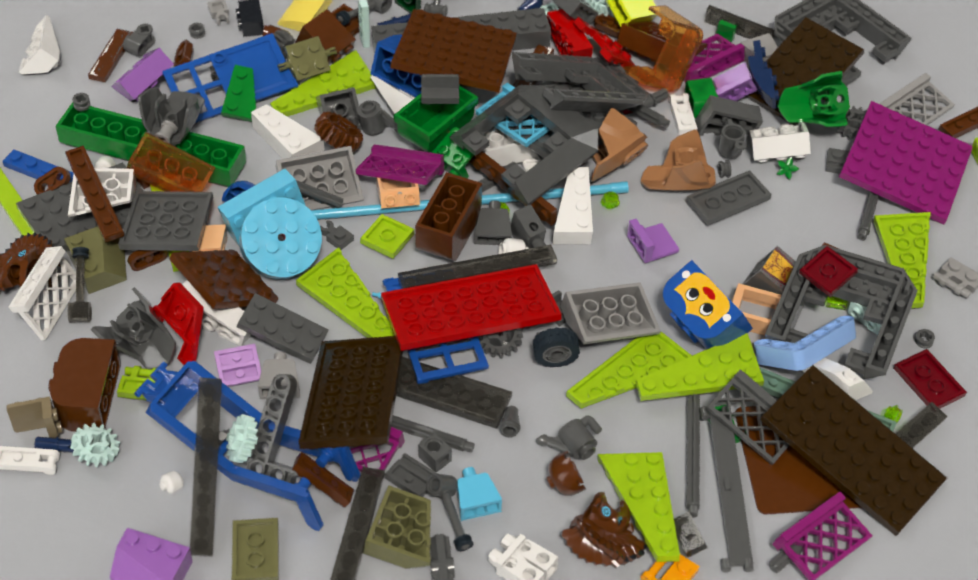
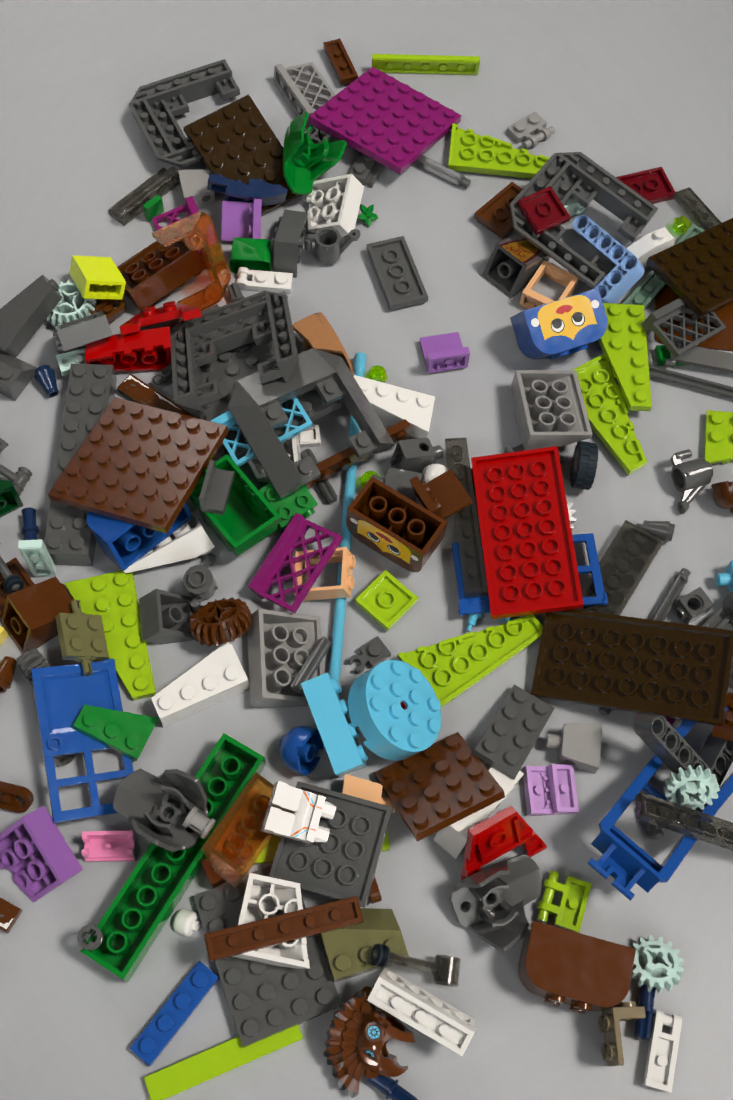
camera: 80 degrees left, 15 degrees up
(52, 179) = (214, 991): reddish brown plate -> none
(171, 482) = (700, 882): white piece -> none
(181, 186) = (304, 816): none -> white hips
(482, 241) = (442, 494): none -> reddish brown bracket
(683, 167) = (355, 302): medium nougat piece -> none
(724, 168) = (356, 265): dark grey bush -> none

